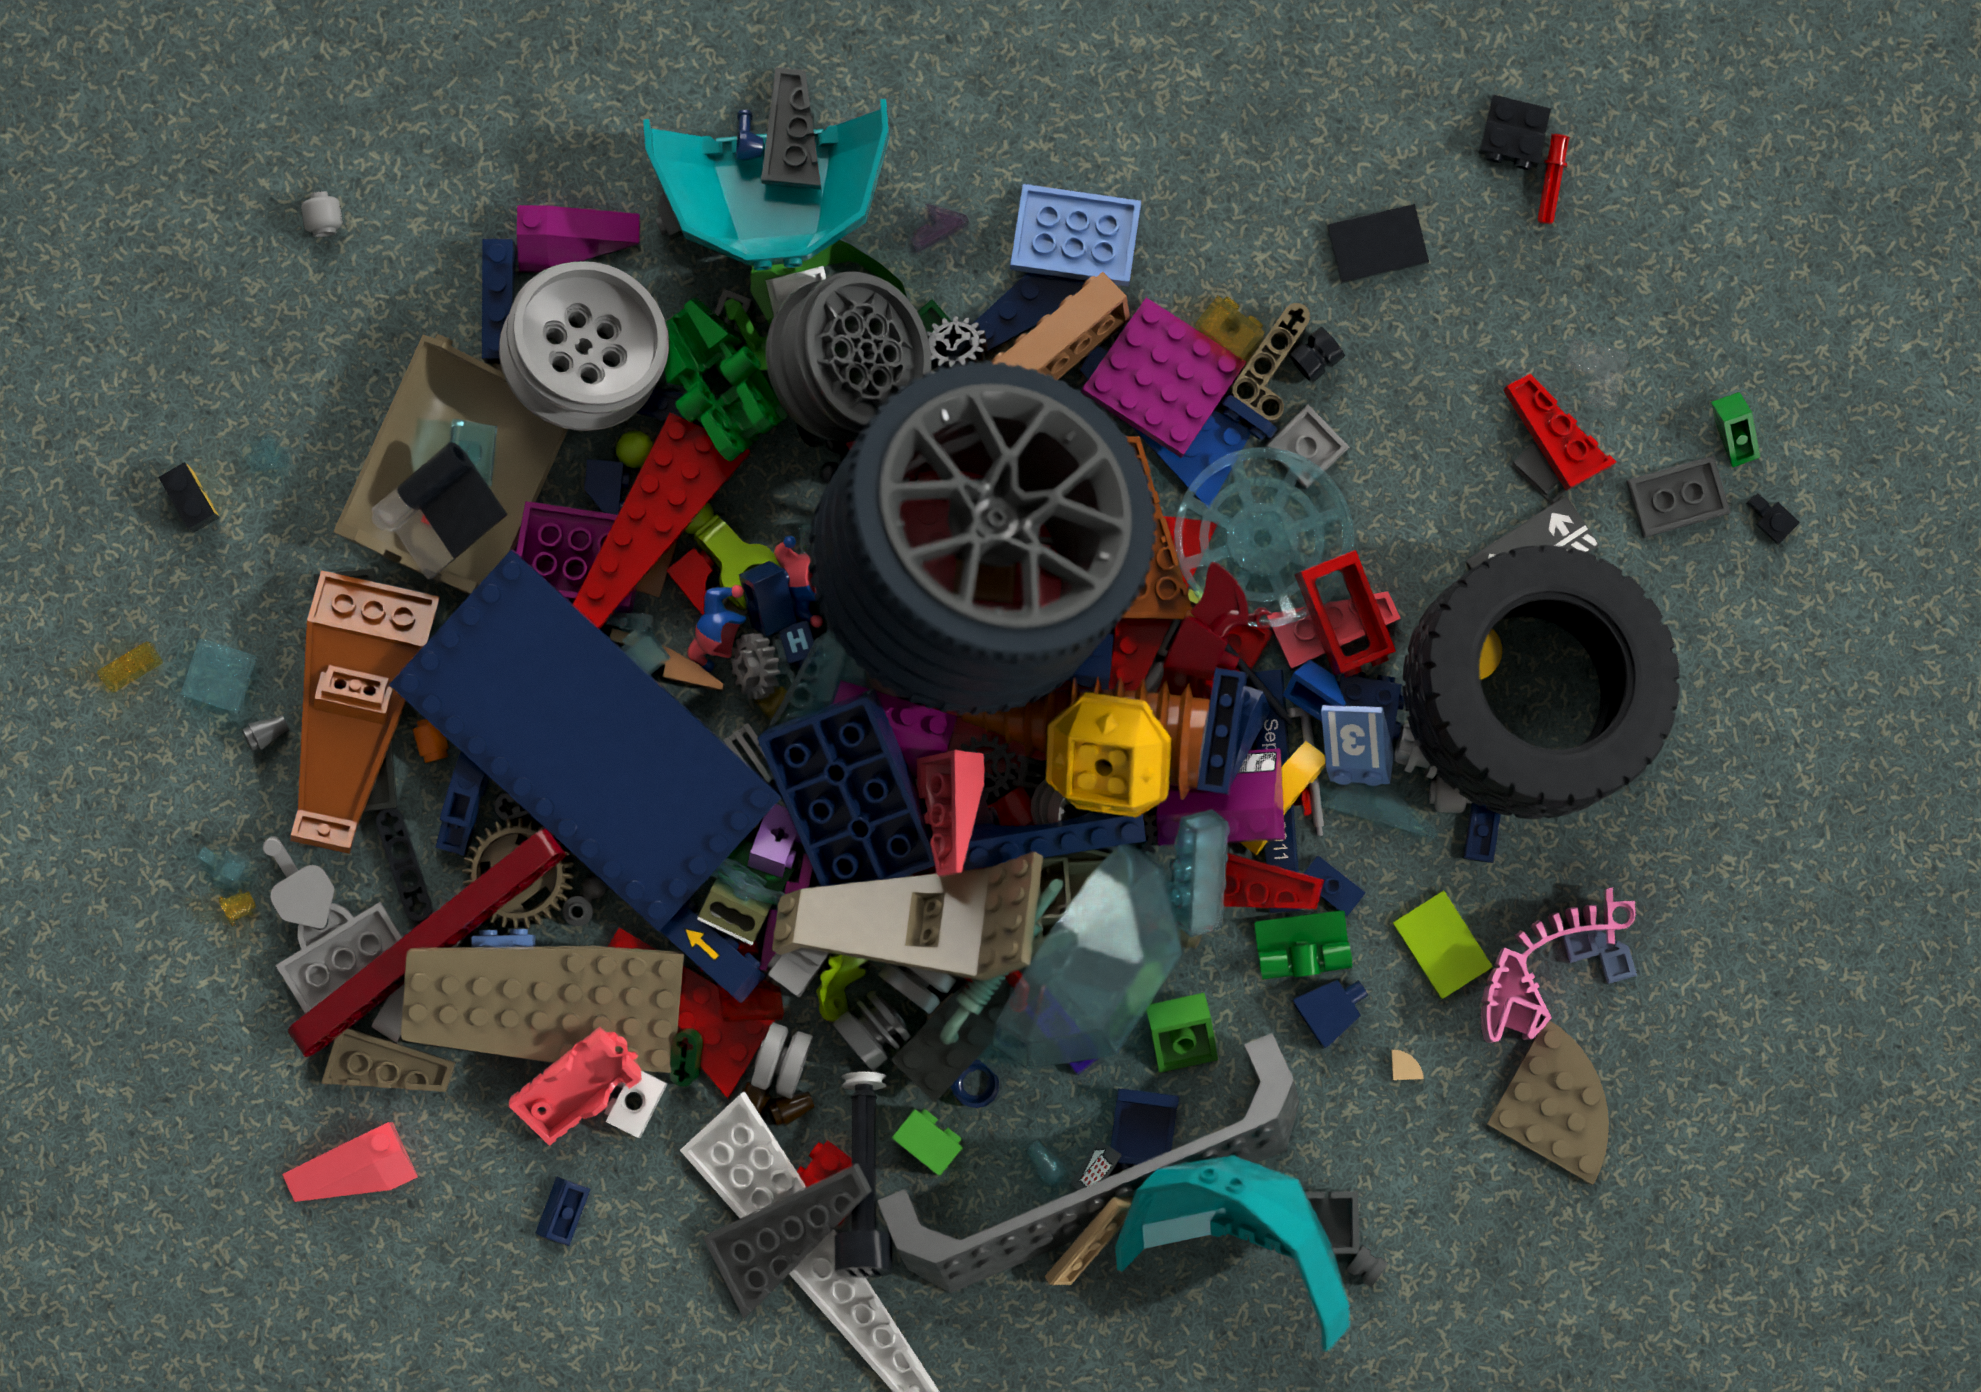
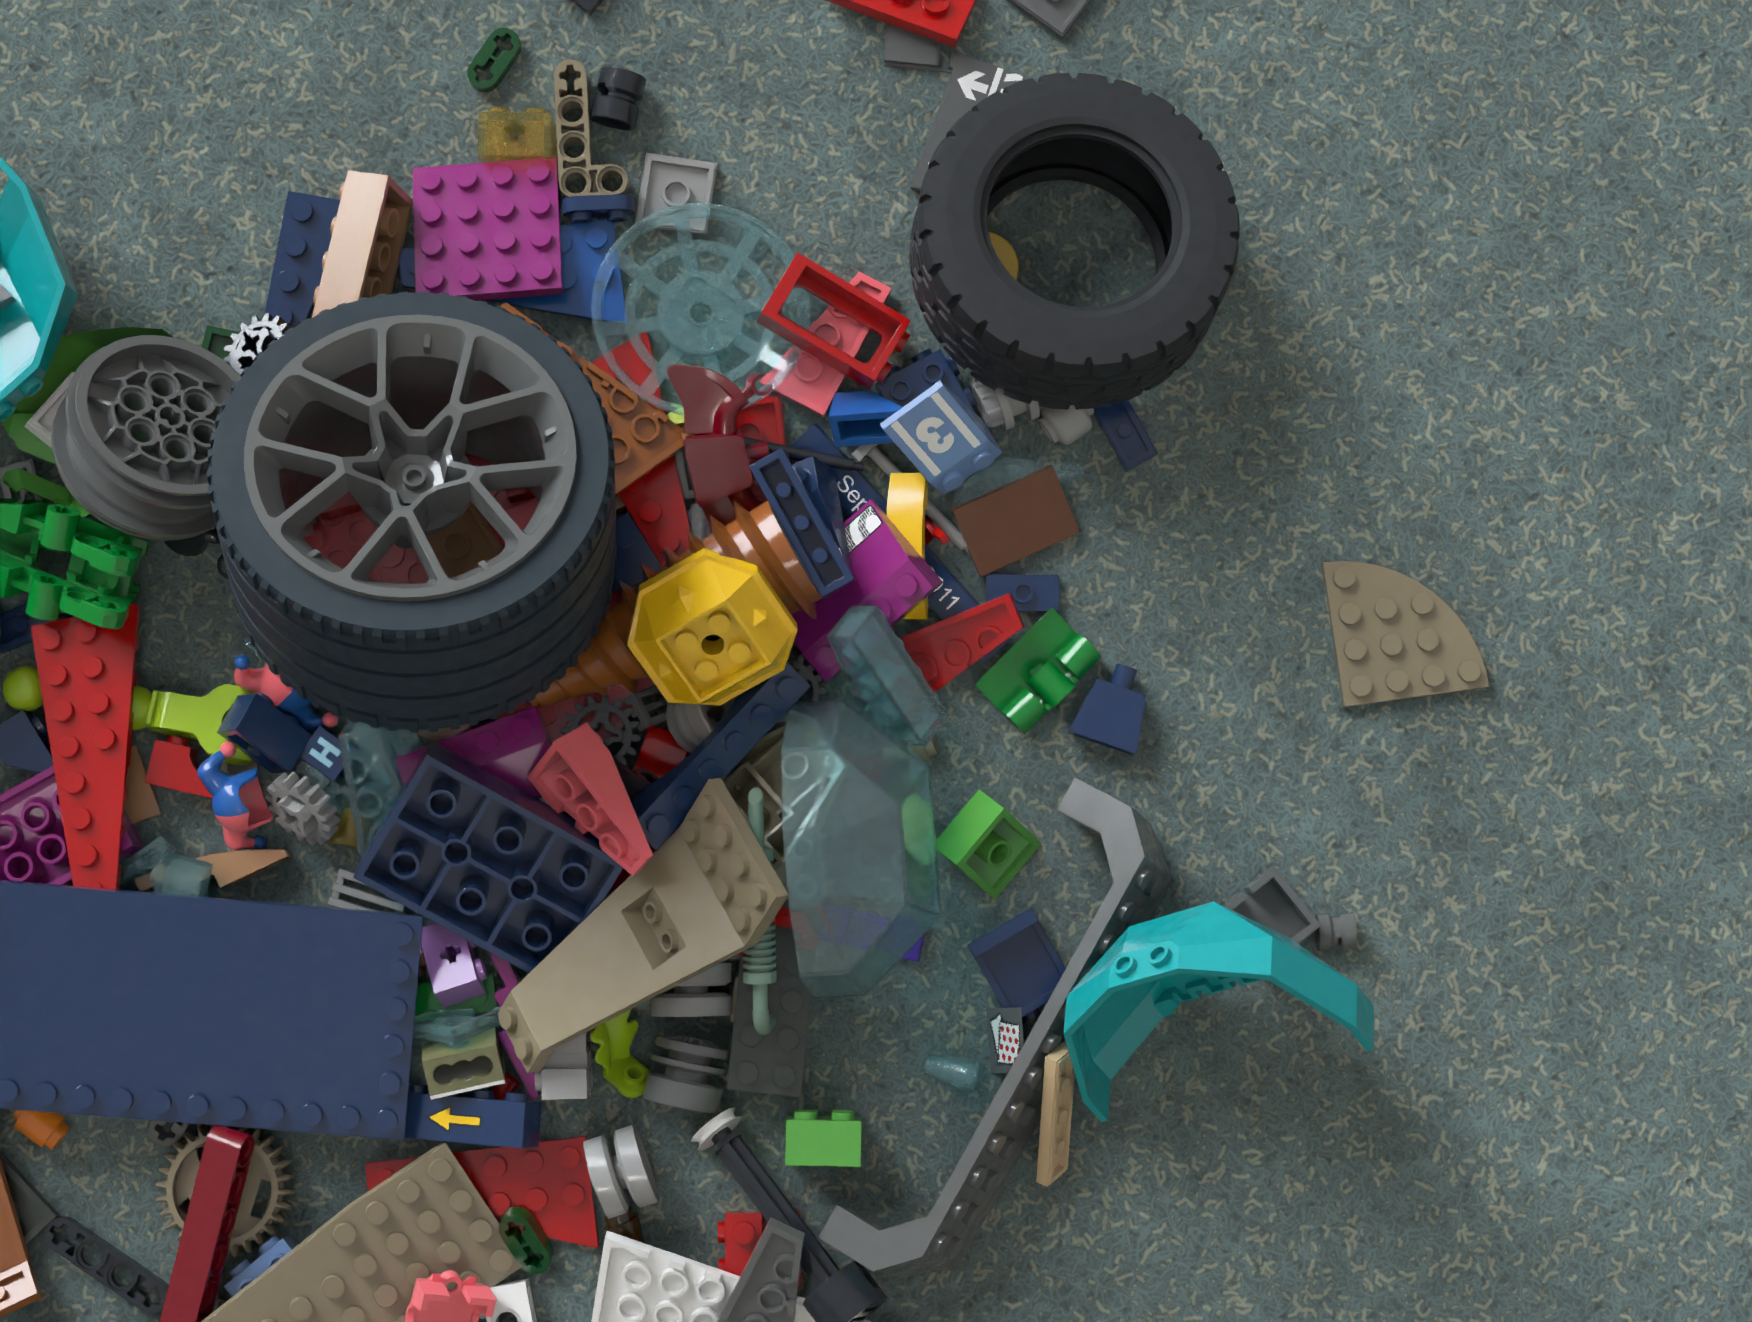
camera: 40 degrees left, 0 degrees up
(461, 806) = (119, 1165): dark blue slope -> none
(592, 889) = (311, 1146): dark grey plate -> none
(760, 1004) = (559, 1131): clear red wing -> none
(786, 1110) = (664, 1215): dark brown cone -> none
(946, 224) = (165, 243): clear purple slope -> none
(980, 1100) = (846, 1054): dark blue piece -> none
(1075, 234) = (297, 159): medium blue plate -> none
(1253, 258) = (487, 55): none -> dark green beam
(1364, 835) = (1015, 520): none -> reddish brown tile
(1405, 1066) = (1224, 712): tan tile -> none
(1442, 945) = (1170, 568): lime tile -> none
(1511, 994) = (1272, 564): bright pink piece -> none
(1615, 959) = (1338, 453): sand blue tile -> none

